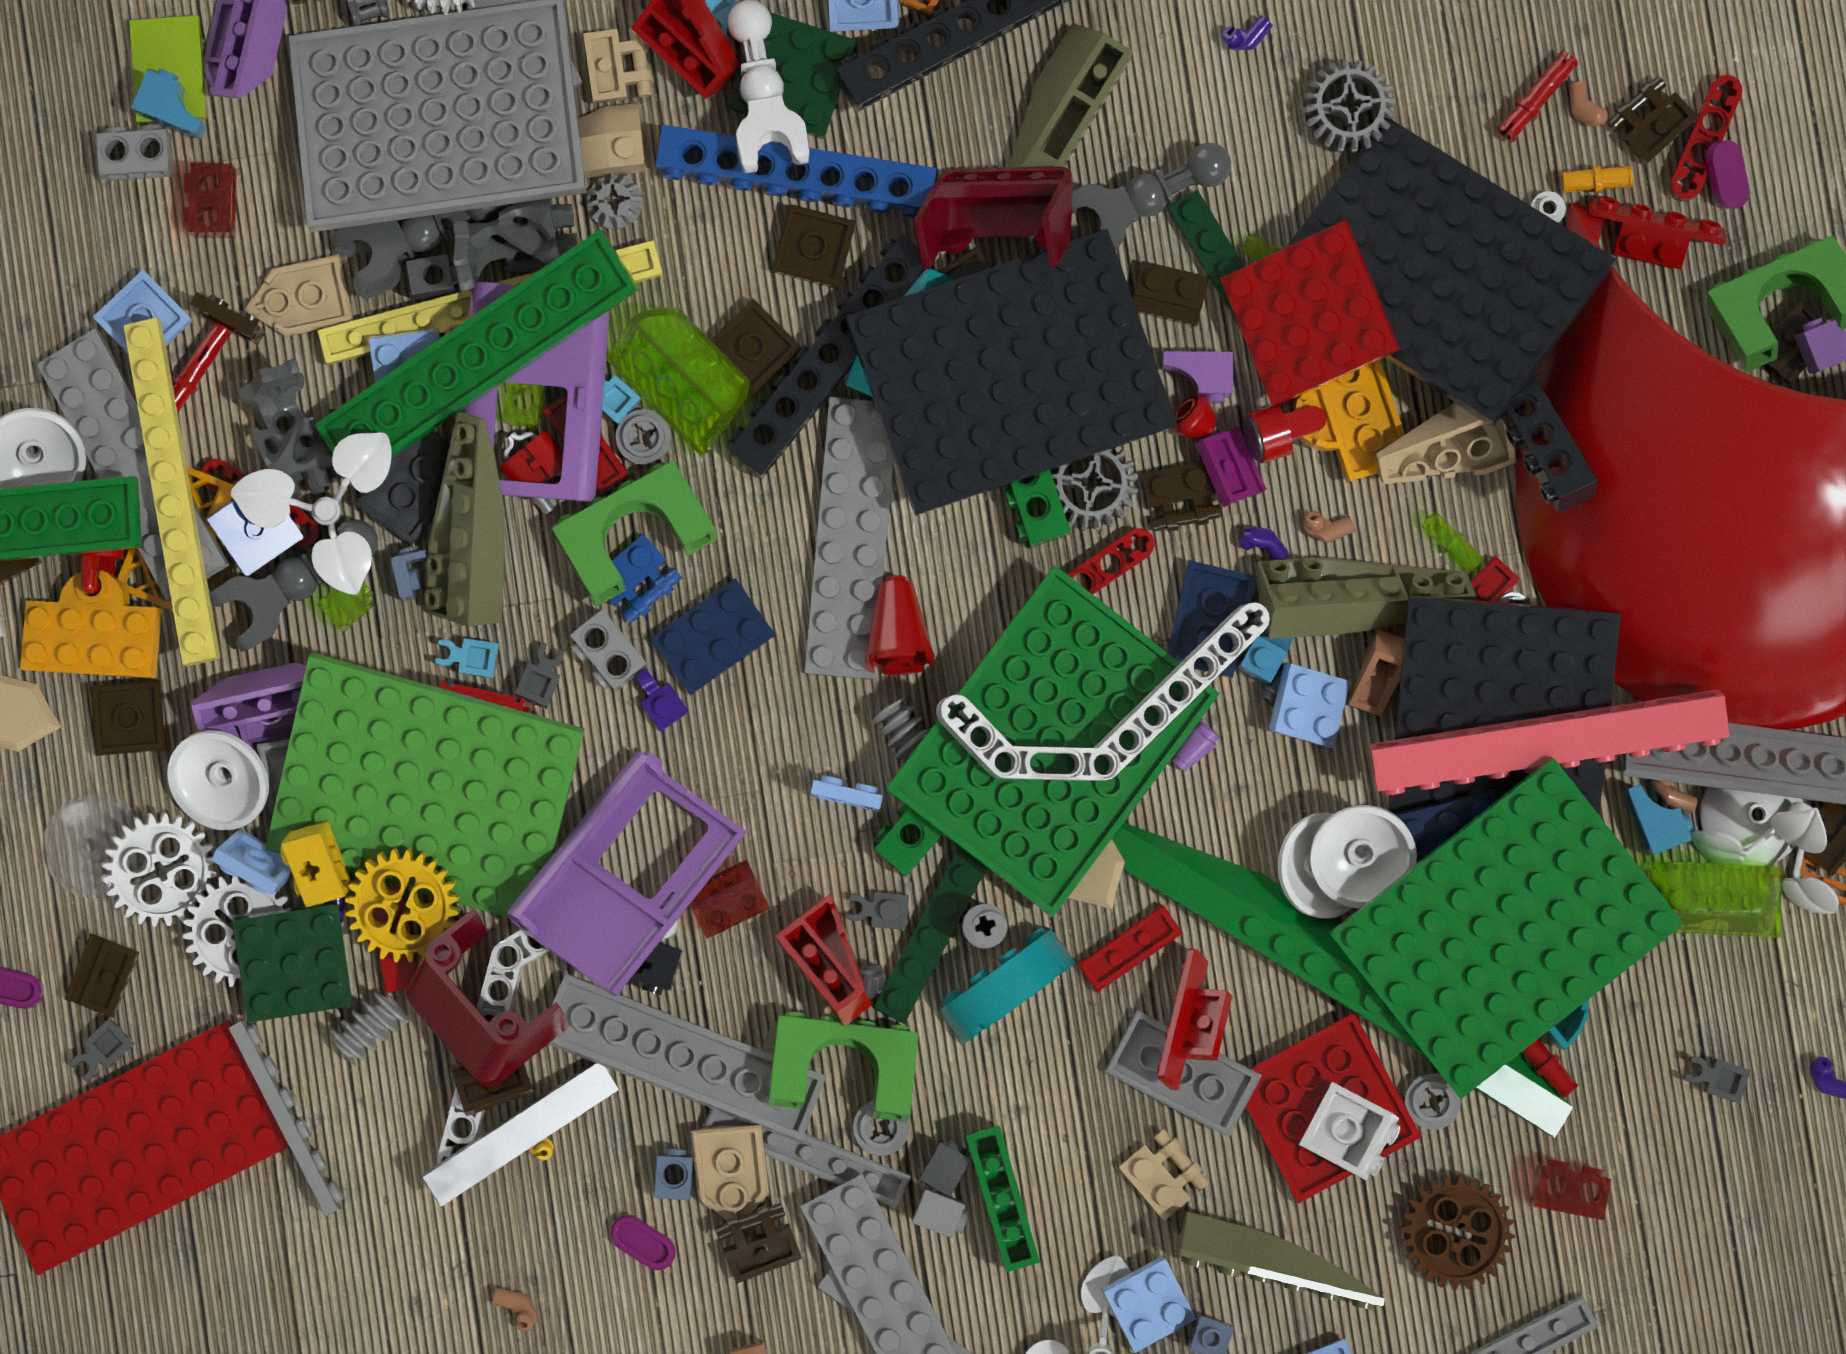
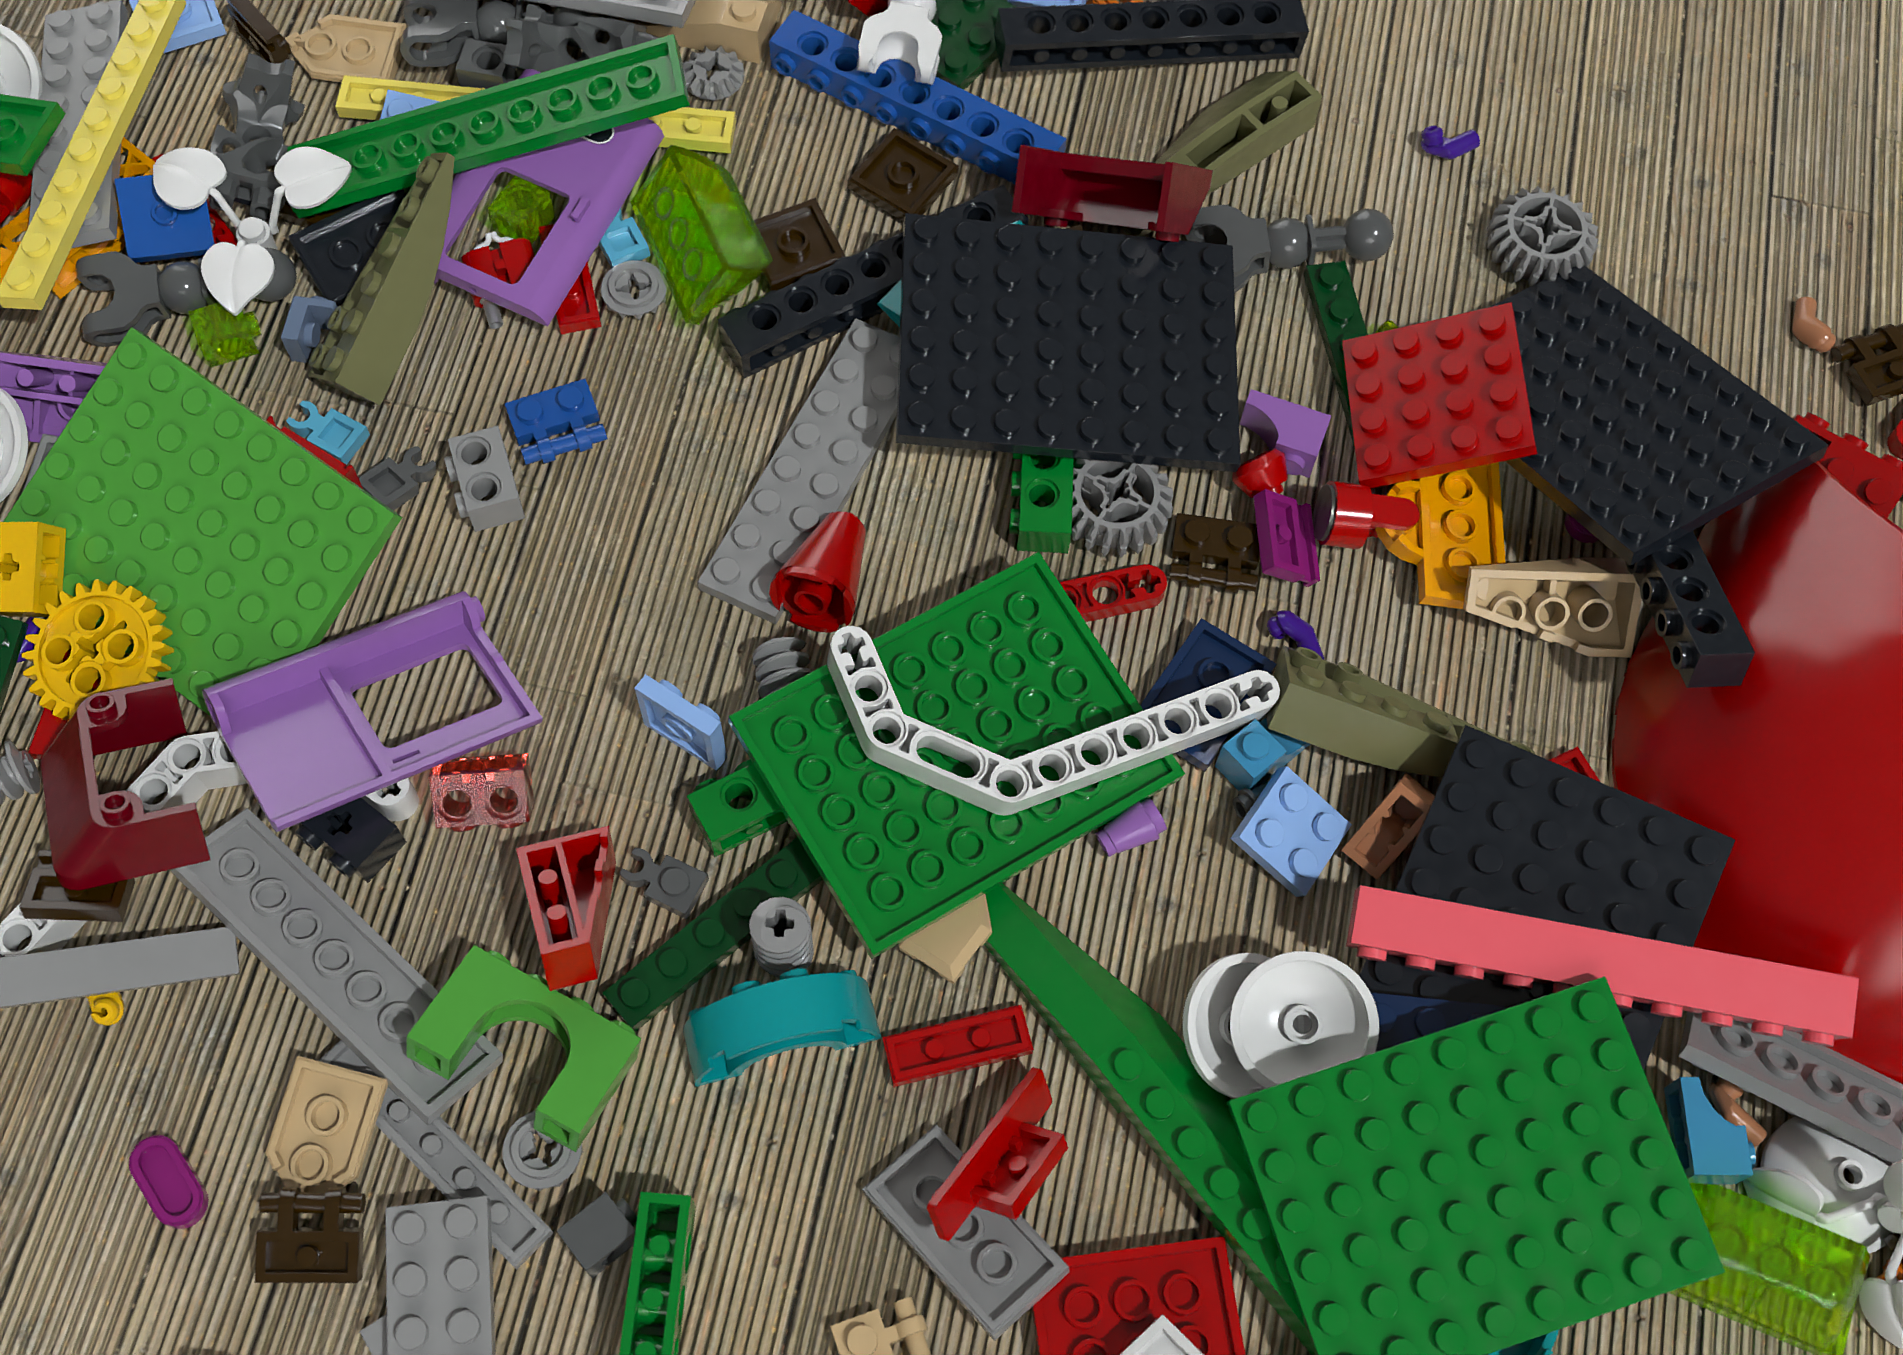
camera: 25 degrees right, 20 degrees down
(199, 362) = (198, 73): red pin -> none
(660, 493) = (523, 347): bright green arch -> none
(663, 703) = (520, 558): dark purple plate -> none
(668, 1190) = (226, 1110): sand blue brick -> none
(713, 636) = (611, 511): dark blue plate -> none
(873, 979) = (616, 957): dark grey plate -> none
(940, 1213) = (562, 1286): light grey brick -> none
(1169, 293) = (1278, 350): dark brown plate -> none
(1325, 530) = (1376, 649): nougat arm -> none
(1452, 542) = (1528, 714): clear neon green axle -> none
(1528, 107) = (1746, 303): red pin -> none
(1597, 179) = (1808, 398): light orange pin -> none

